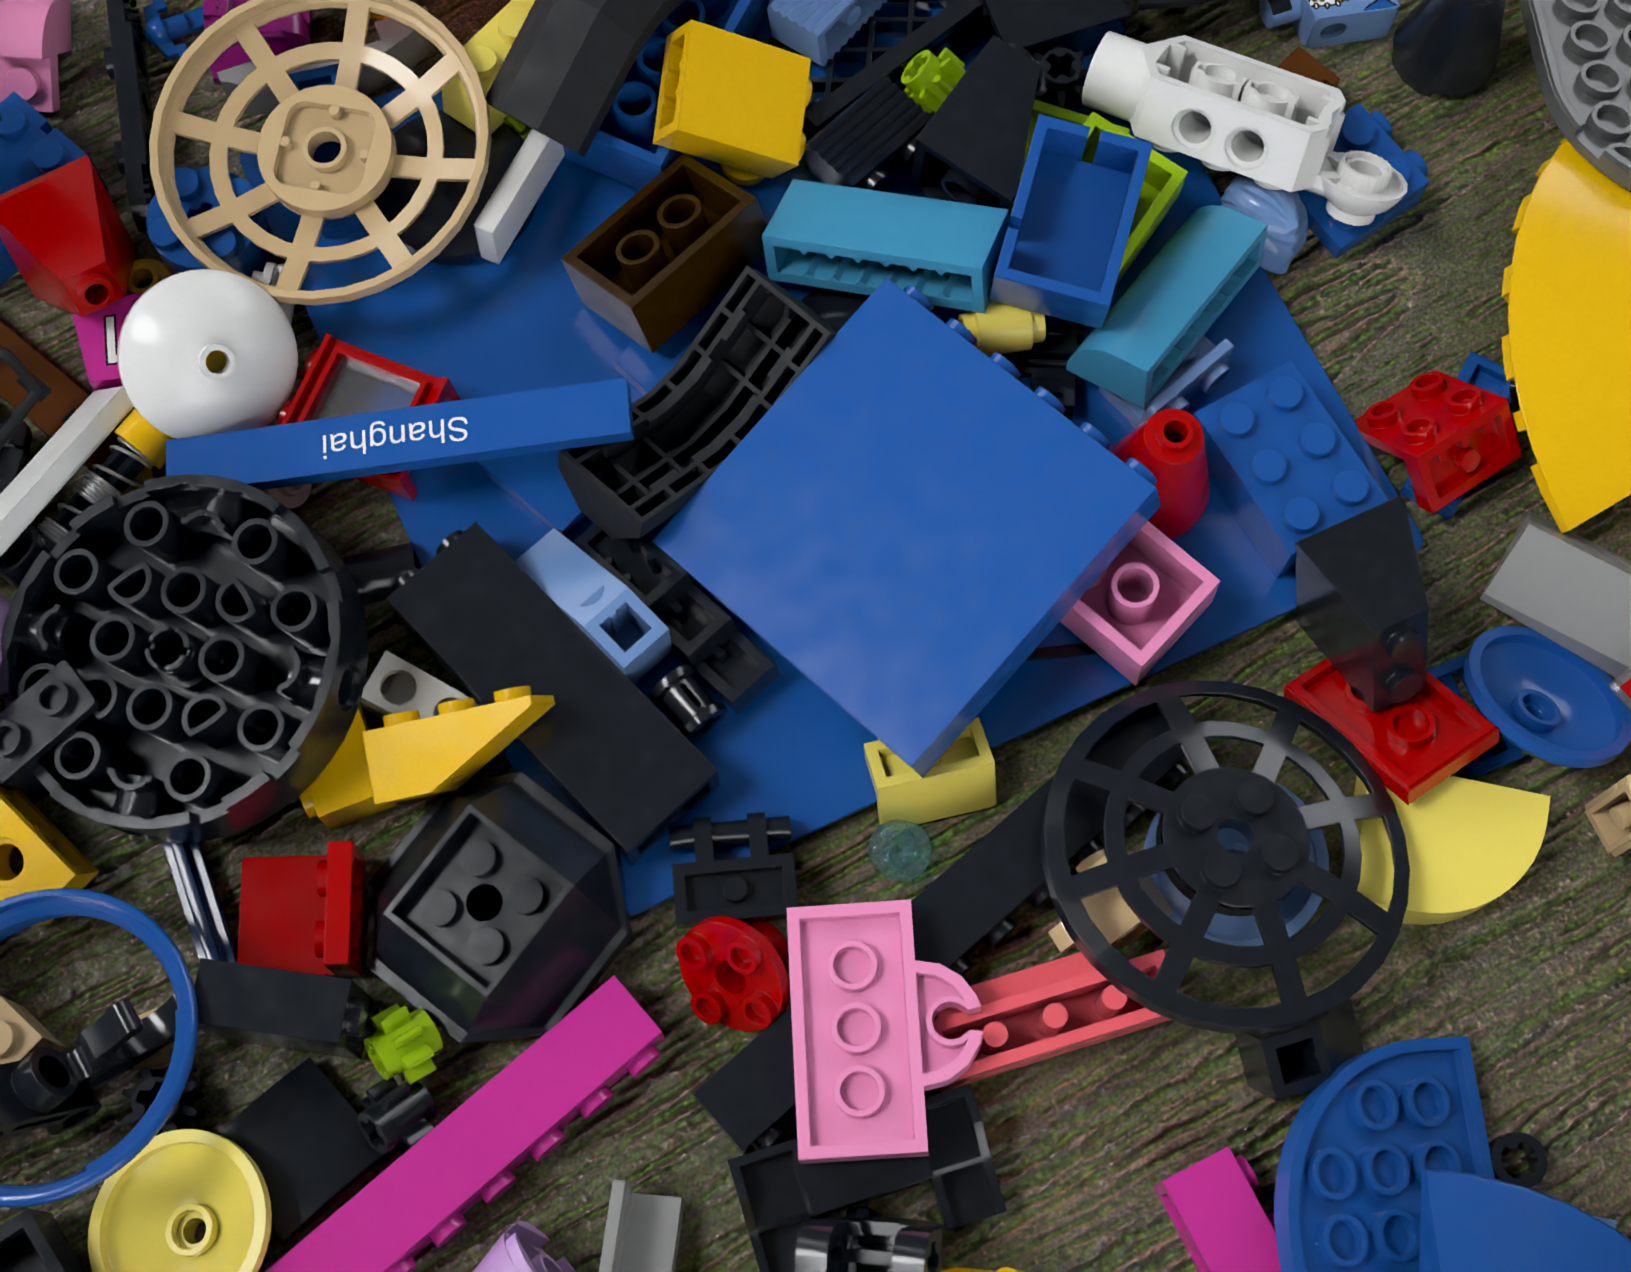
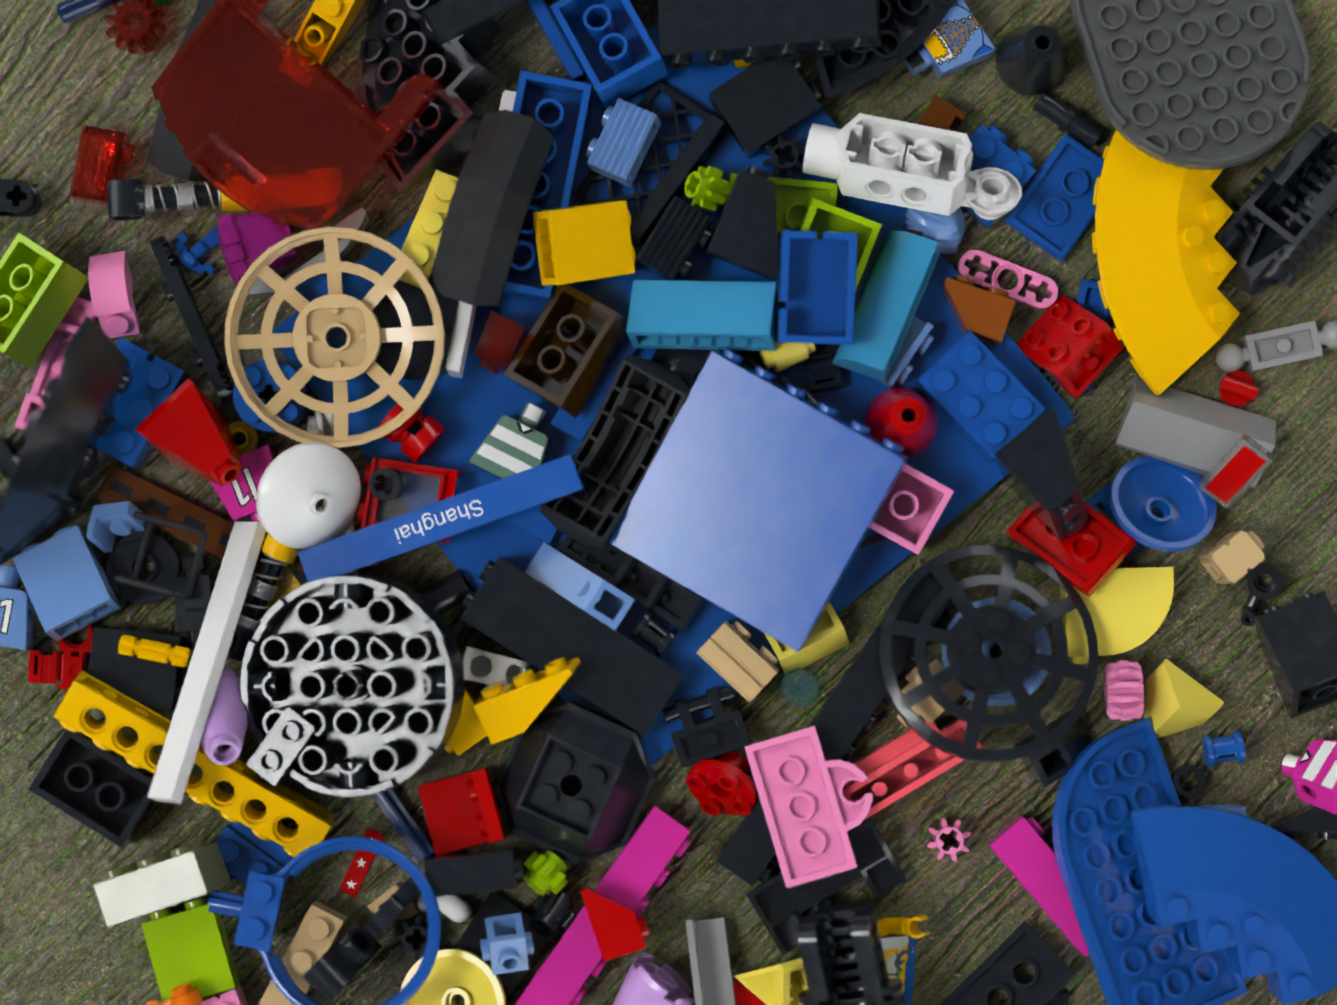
camera: 15 degrees left, 15 degrees up
(108, 971) = (359, 867): none -> red sticker
(234, 1064) = (451, 906): none -> white arm
(298, 1142) = (507, 951): none -> medium blue brick
(316, 363) = (388, 473): none -> black bush
(404, 320) = (419, 445): none -> red wheel
(488, 1154) = (614, 924): none -> red slope
(544, 360) = (513, 444): none -> torso
(566, 213) = (499, 343): none -> clear red slope
(811, 776) = (738, 660): none -> tan brick
(1108, 1160) = (959, 836): none -> bright pink gear
(1316, 343) = (979, 310): none -> dark orange slope
(1359, 352) = (1036, 279): none -> bright pink beam
(1435, 977) = (1123, 690): none -> bright pink gear
(1451, 240) = (1058, 199): none -> blue tile
(1487, 133) = (1068, 119): none -> black pin
(1519, 1020) = (1177, 700): none -> light yellow slope
(1585, 1120) = (1223, 749): none -> blue bush

